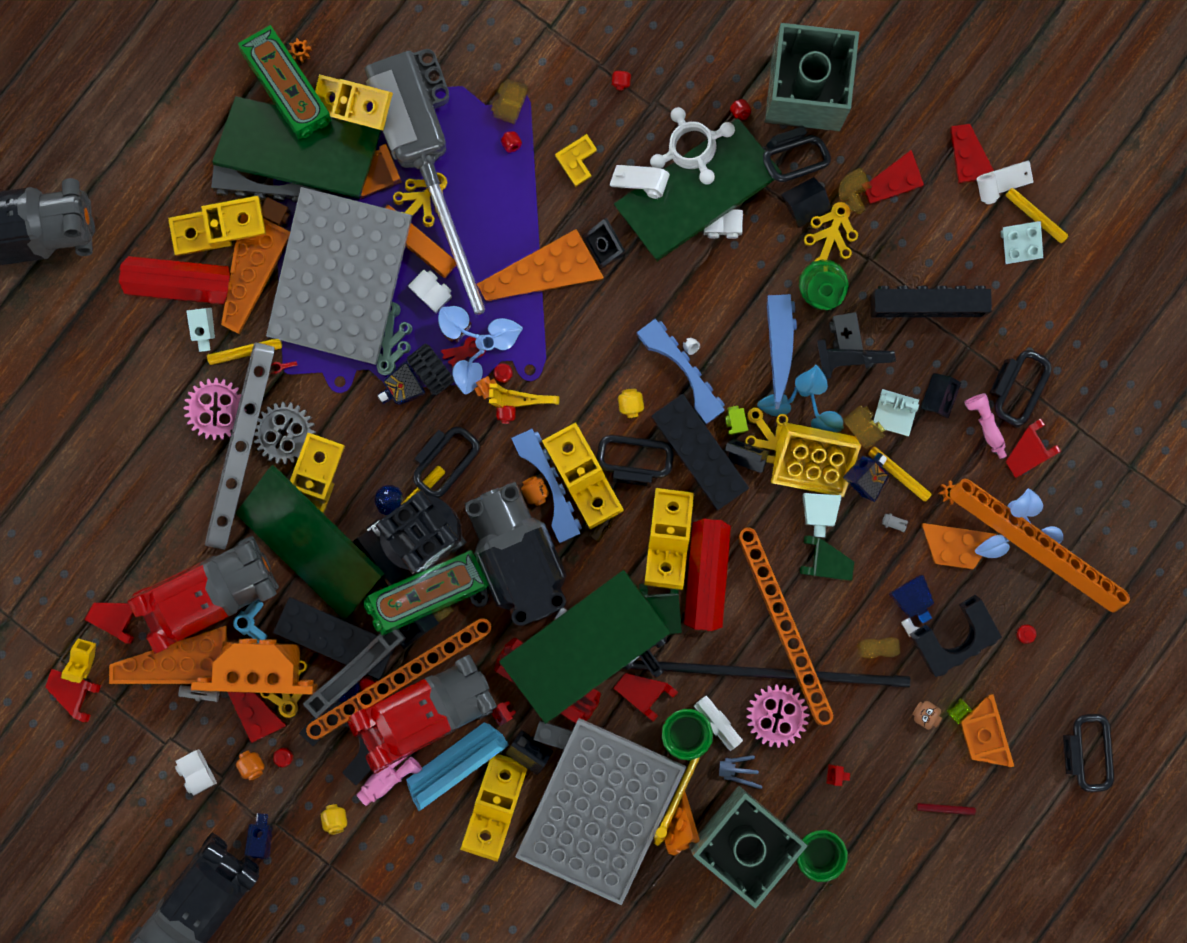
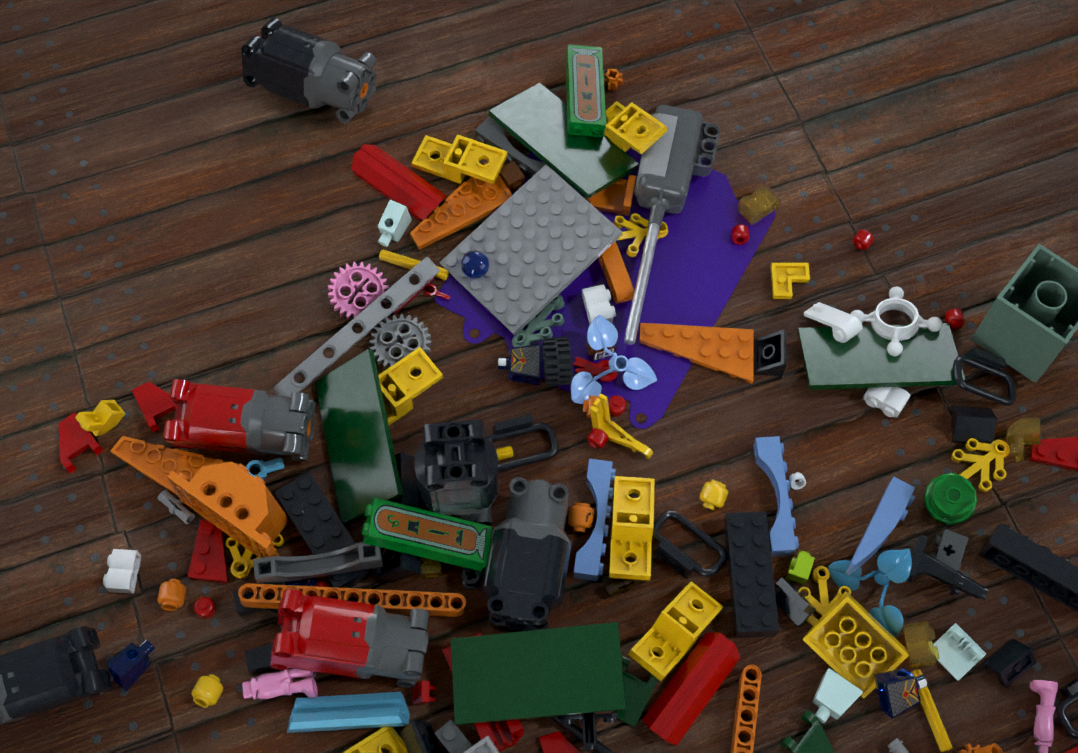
camera: 30 degrees right, 20 degrees down
(301, 322) = (474, 264): none -> clear blue hair

